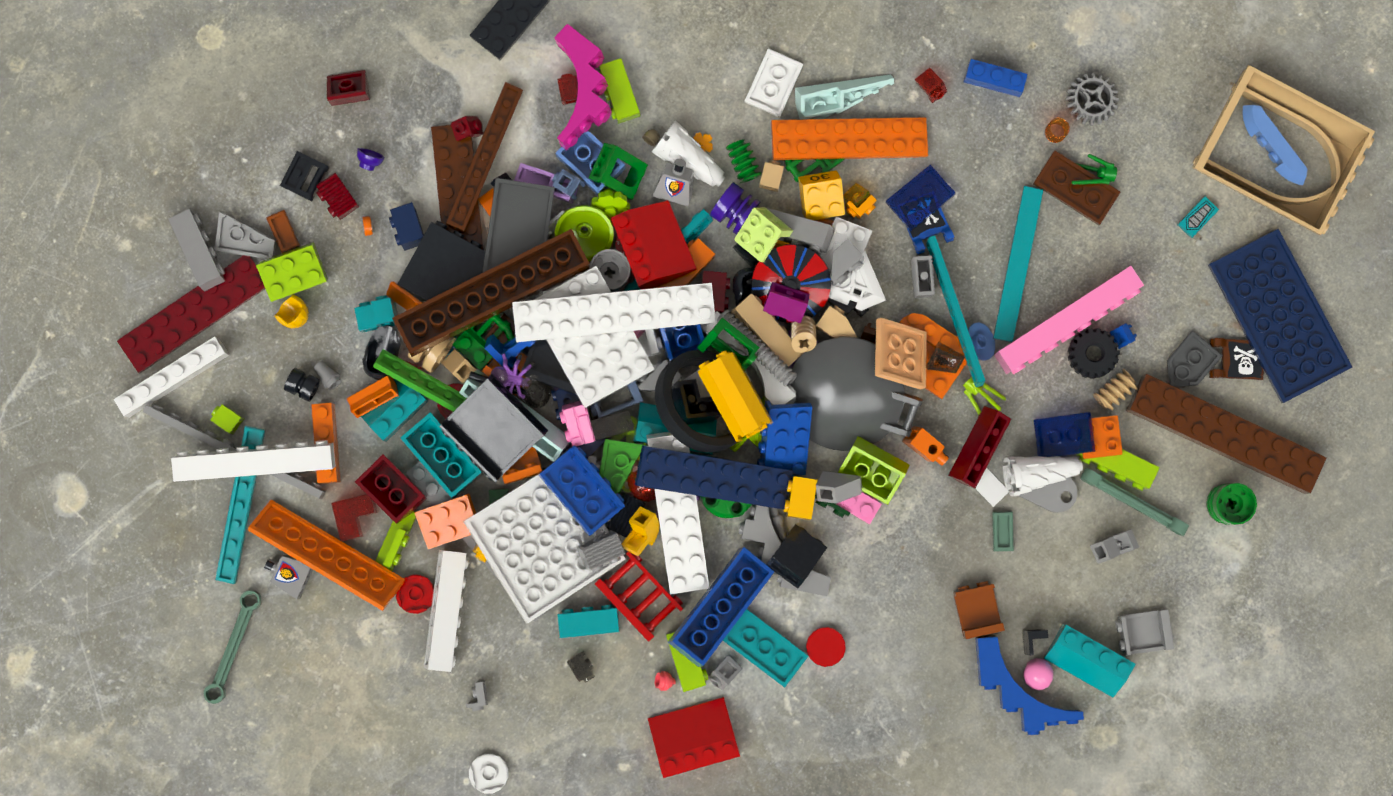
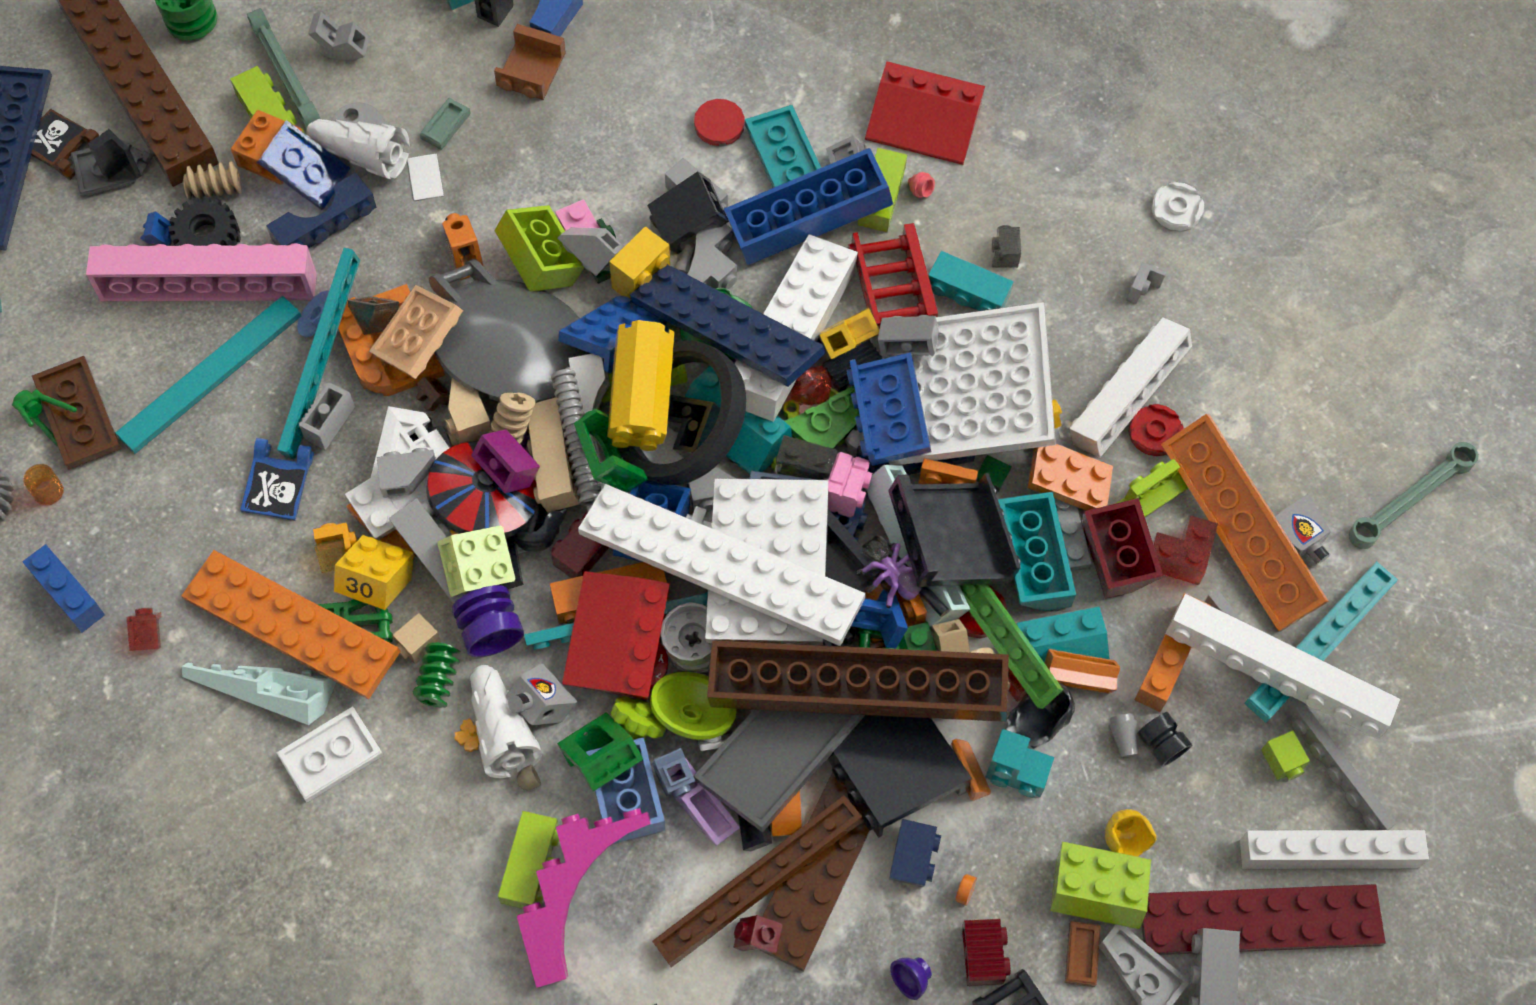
camera: 150 degrees left, 20 degrees down
(568, 88) = (591, 903): clear red brick -> none
(920, 197) = (260, 509): clear blue tile -> none
(970, 388) = (365, 276): lime plant -> none
(979, 447) = (404, 208): dark red brick -> none
(1036, 386) = (350, 203): none -> dark blue arch
(1188, 361) = (113, 155): none -> black panel

